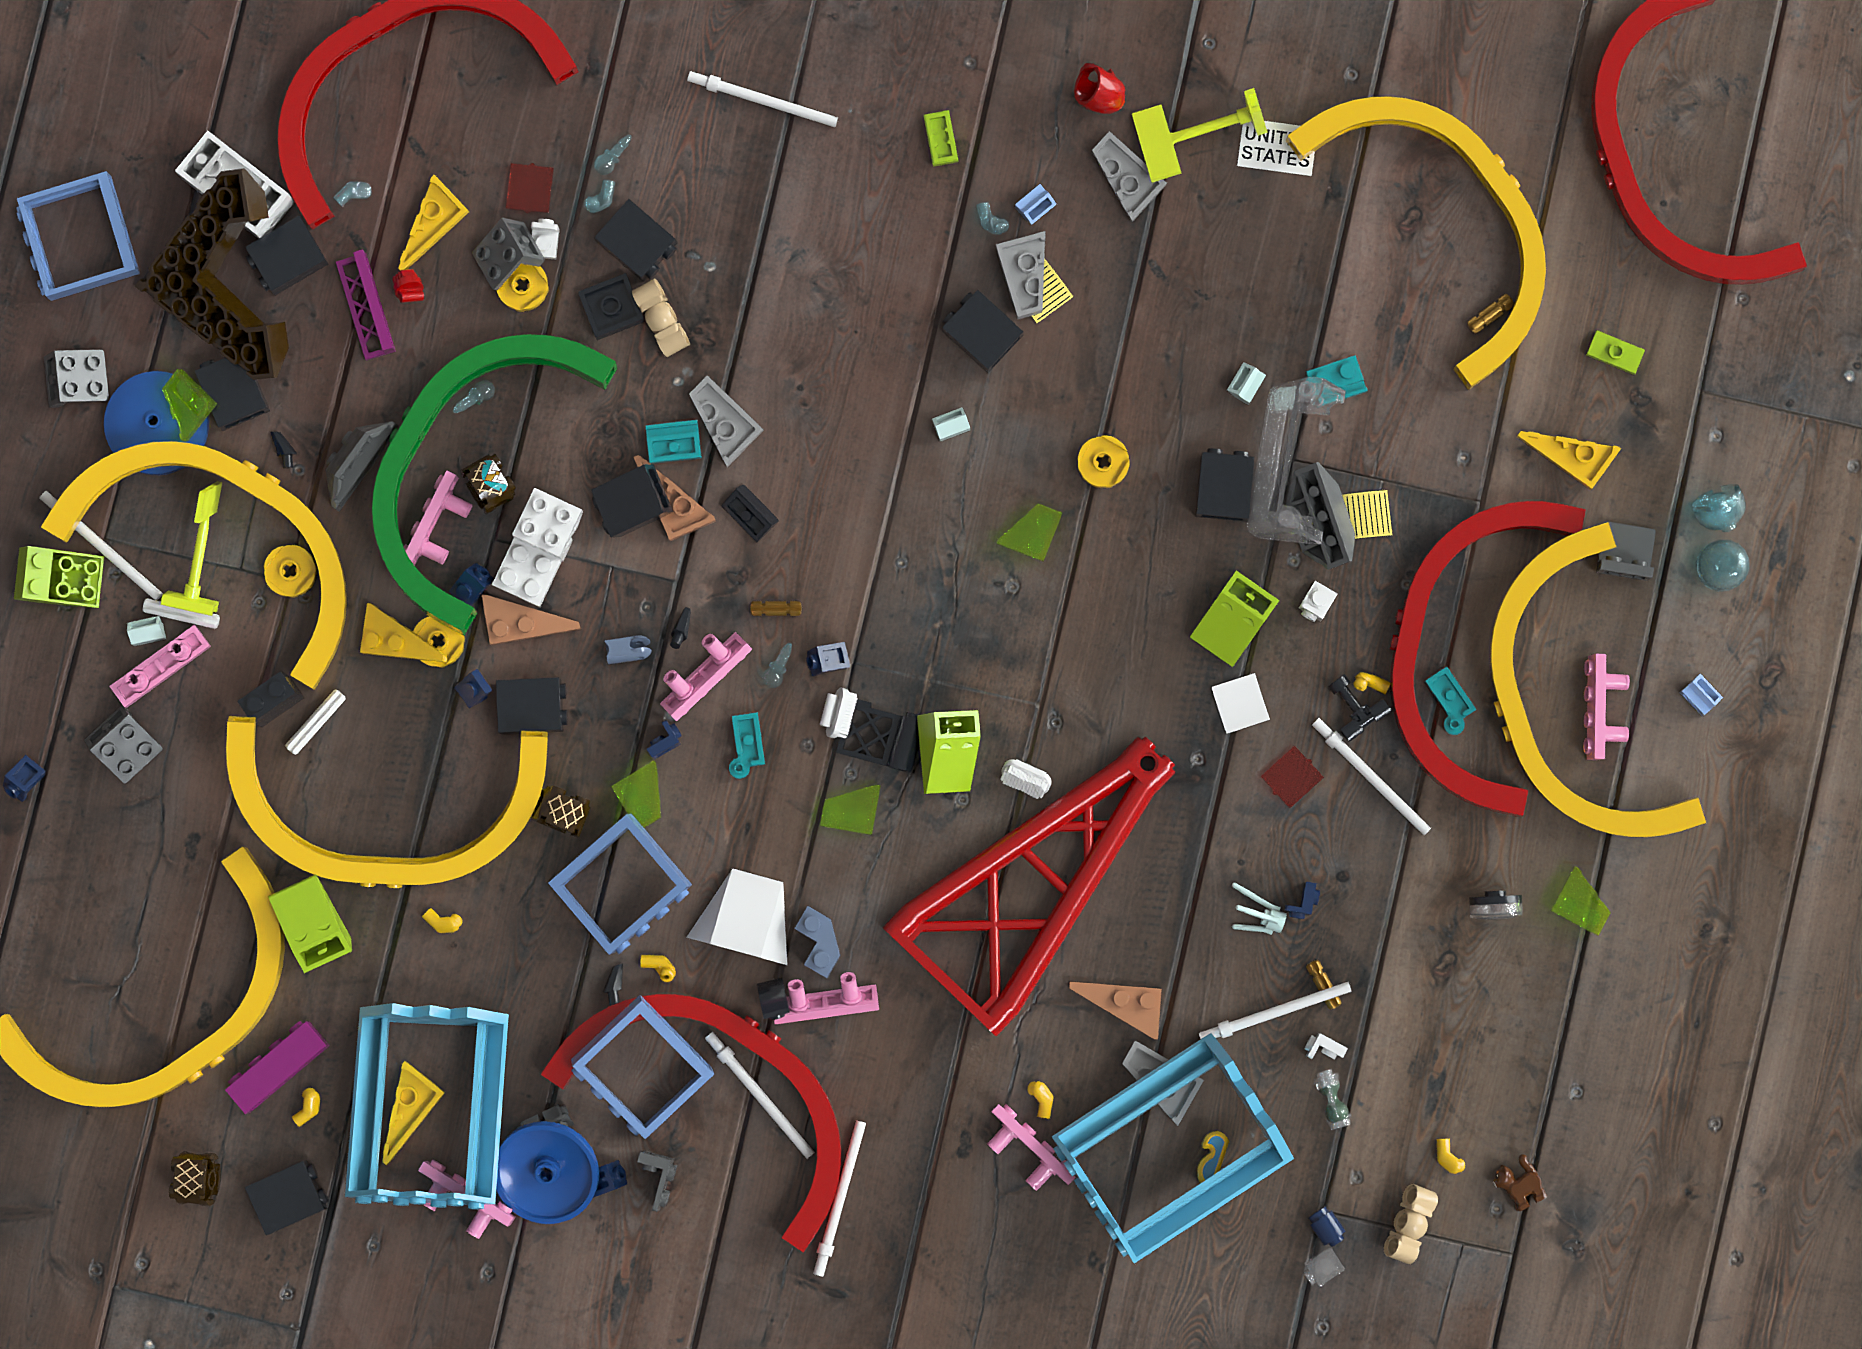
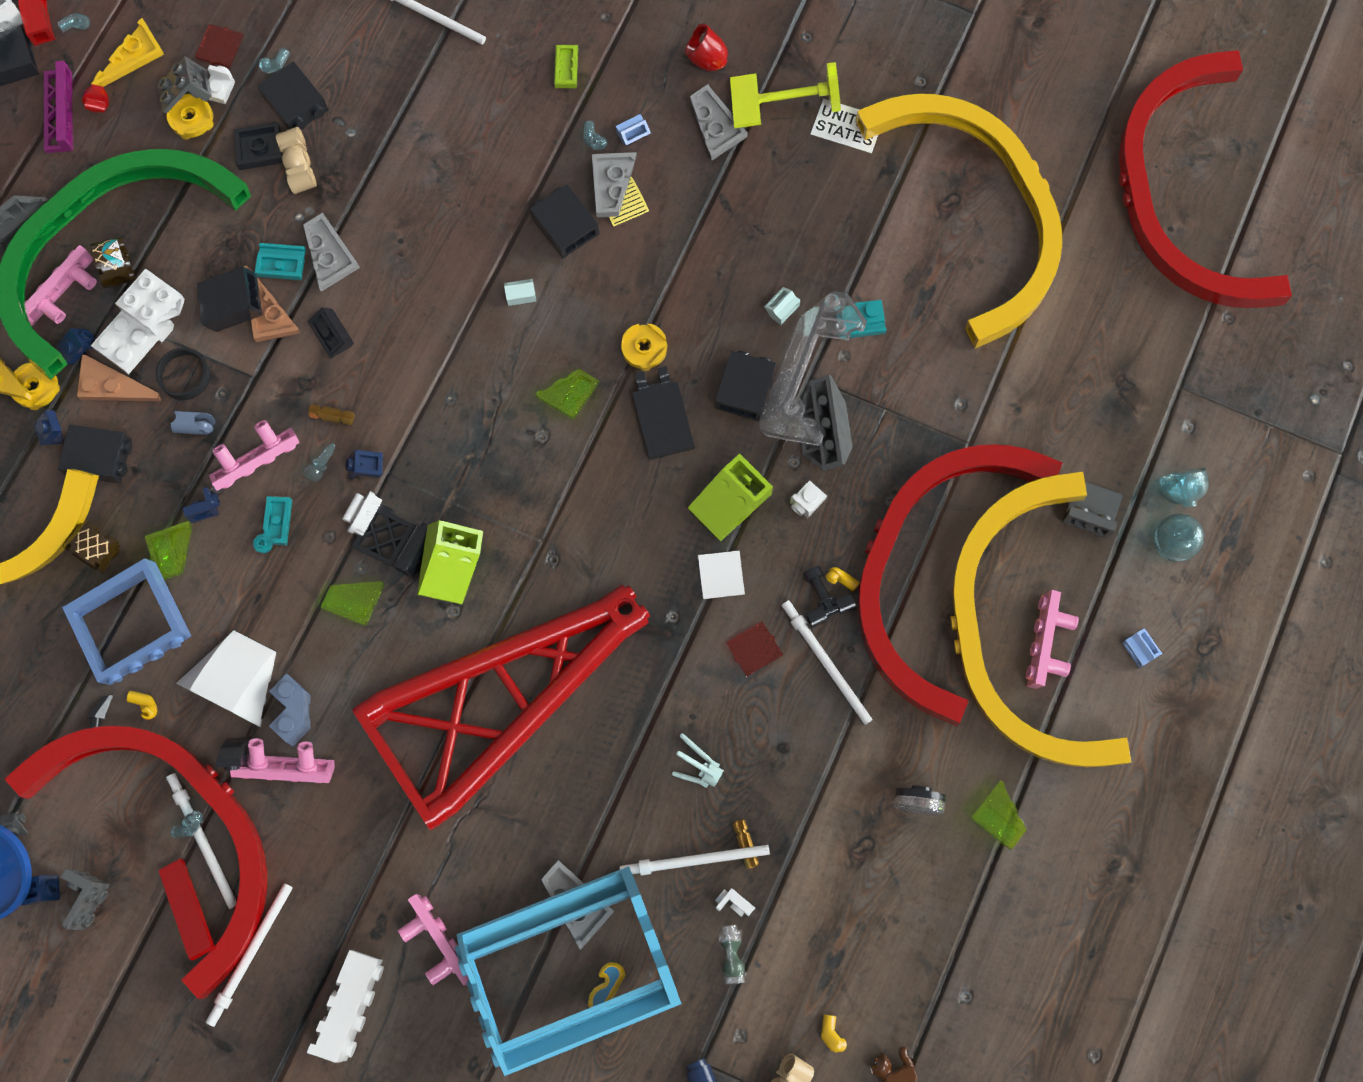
camera: 10 degrees right, 10 degrees down
(483, 391) = (134, 193): clear light blue bar -> none
(587, 570) = (170, 356): none -> black tyre
(606, 162) = (285, 36): clear light blue bar -> none
(642, 1007) = (130, 768): medium blue window -> none
(680, 630) = (244, 417): black bar -> none
(744, 1083) = (189, 825): none -> clear light blue arm
(765, 1167) = (186, 909): none -> red tile
(955, 1228) = (347, 1007): none -> white wedge
(1025, 778) = (513, 601): white piece -> none
(1044, 1097) = (462, 897): yellow arm -> none
(1131, 1004) = (565, 827): nougat wing -> none
(1140, 538) = (662, 416): none -> black tile
(1310, 897) = (748, 760): dark blue bracket -> none
(1369, 513) = (868, 434): light yellow sticker -> none
(1452, 700) = (912, 607): teal hinge -> none
(1490, 313) = (1005, 288): pearl gold axle -> none
(1577, 458) = (1064, 423): yellow wing -> none
(1615, 352) = (1110, 340): lime plate -> none

